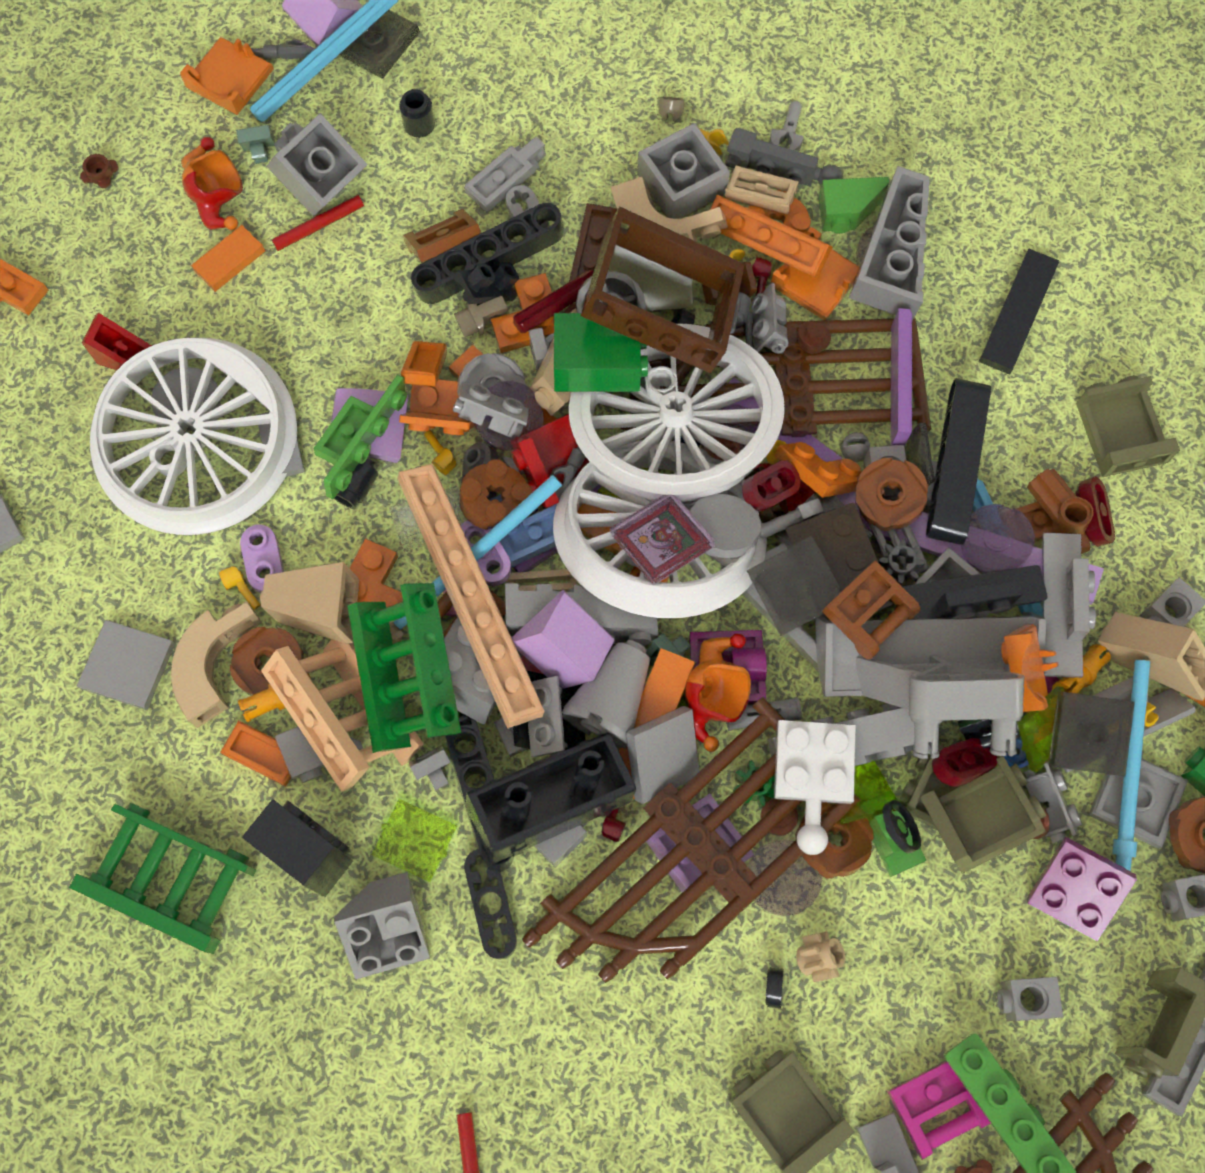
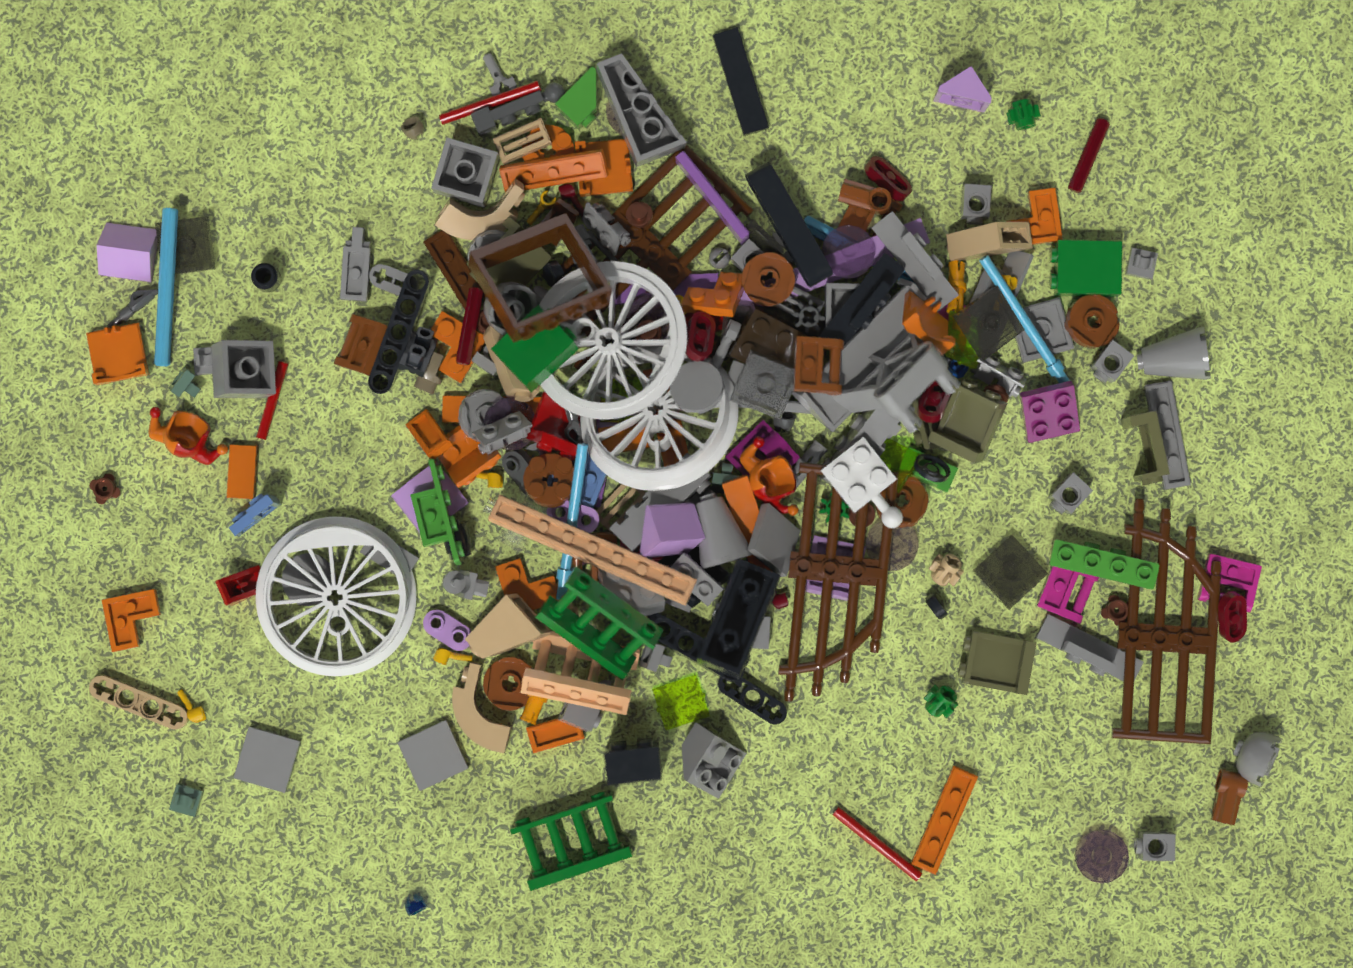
camera: 45 degrees left, 15 degrees up
(200, 293) = (260, 508): none -> medium blue plate
(317, 523) = (464, 584): none -> light grey hips
(662, 538) = (672, 428): tile -> none
(688, 1098) = (941, 701): none -> green gear
(711, 124) = (490, 102): none -> red bar
(715, 139) = (458, 128): yellow hand -> none
(782, 651) = (786, 422): none -> dark grey hinge
(889, 1025) = (1010, 572): none -> clear smoke plate
(1124, 426) = (861, 107): olive panel -> none

